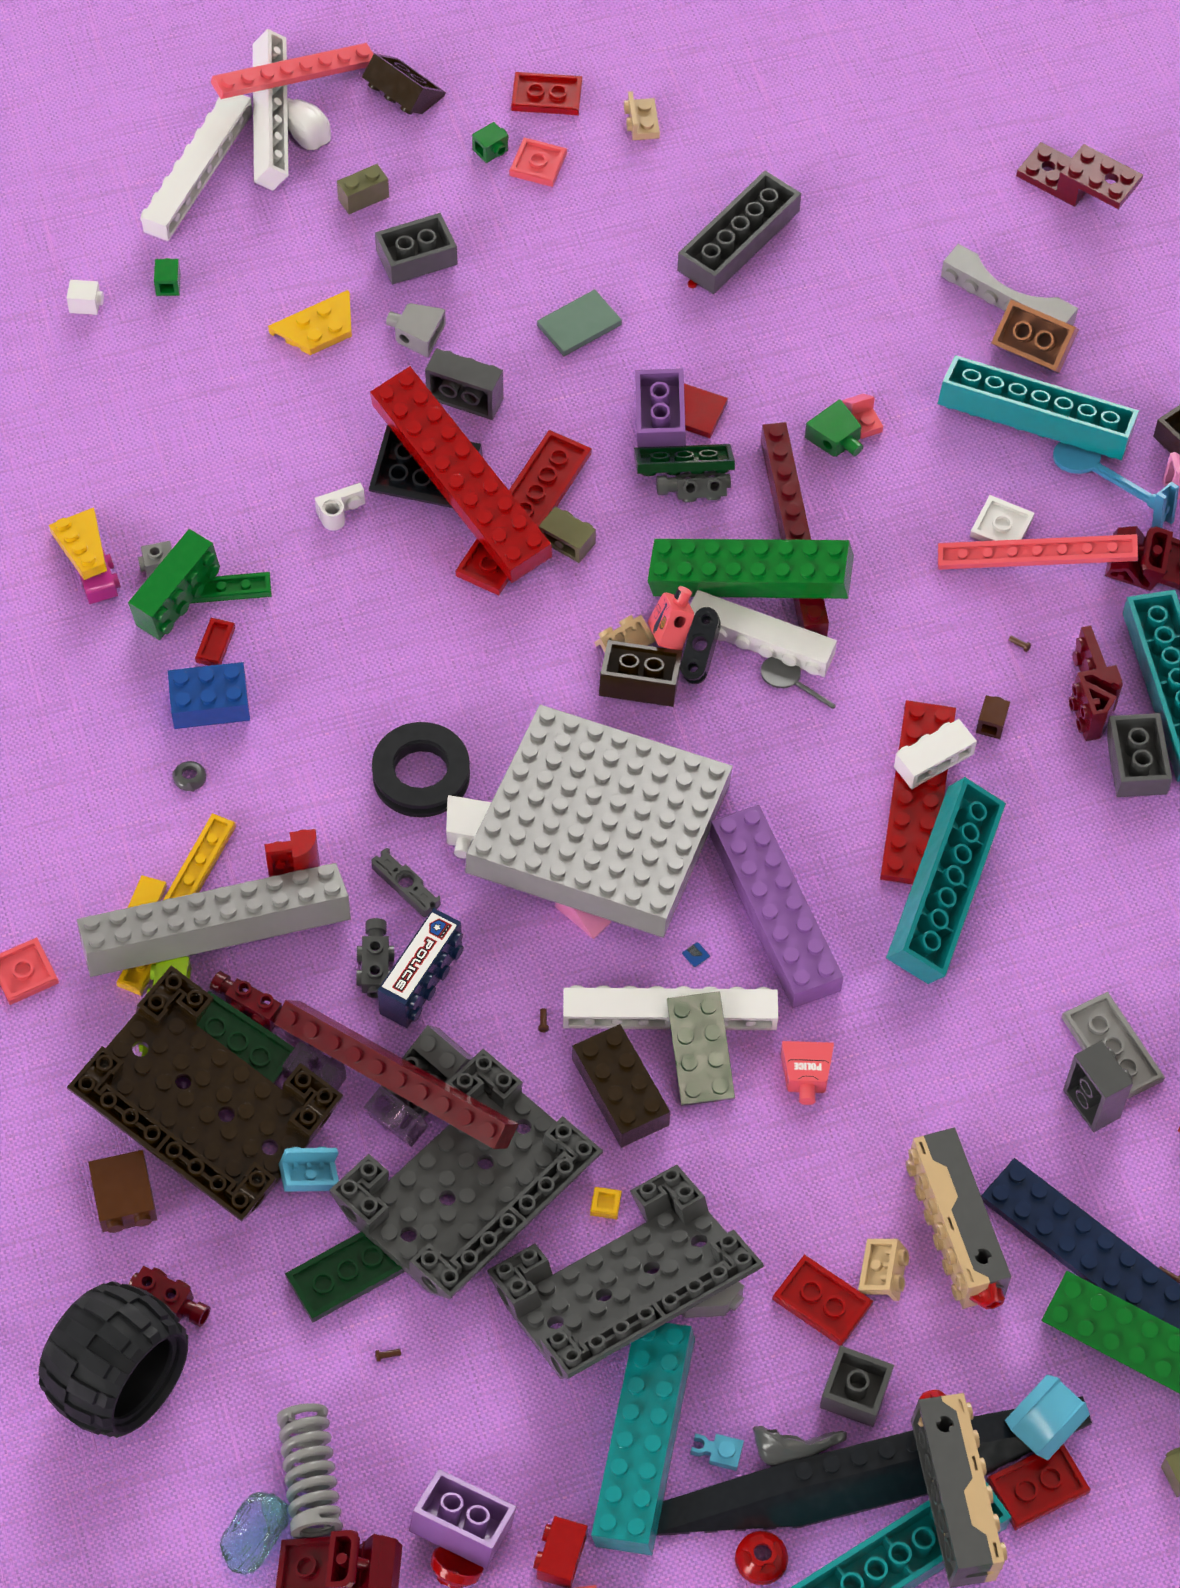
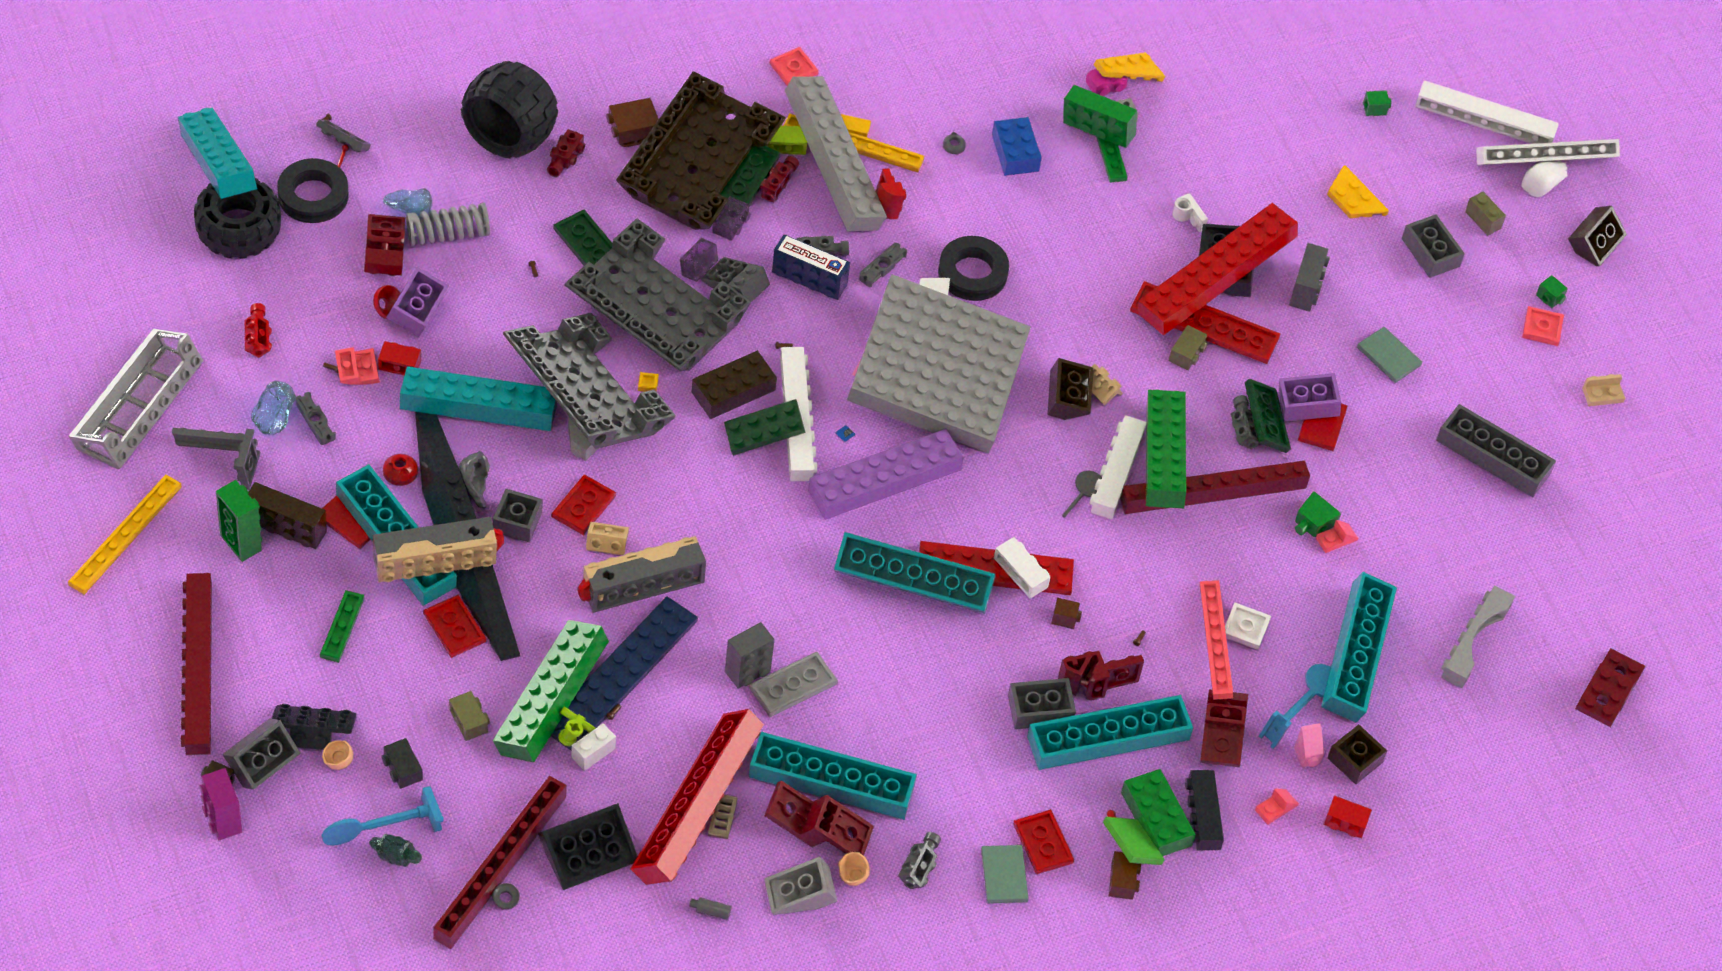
camera: 80 degrees right, 5 degrees down
(84, 297) = (1347, 57): white brick -> none
(215, 642) = (1064, 151): red tile -> none
(292, 71) = (1582, 157): coral plate -> none
(308, 1169) = (657, 215): medium azure bracket -> none
(397, 1074) = (725, 253): dark red brick -> none
(418, 327) = (1361, 253): light grey torso -> none
(546, 93) = (1614, 330): red tile -> none
(672, 619) = (1121, 403): coral torso -> none
(698, 632) = (1097, 423): black piece -> none
(723, 1452) = (473, 444): medium azure plate -> none
(806, 1068) = (756, 493): coral torso -> none
(1035, 336) = (1429, 645): nougat brick -> none
(1047, 1417) = (496, 622): medium azure slope -> none

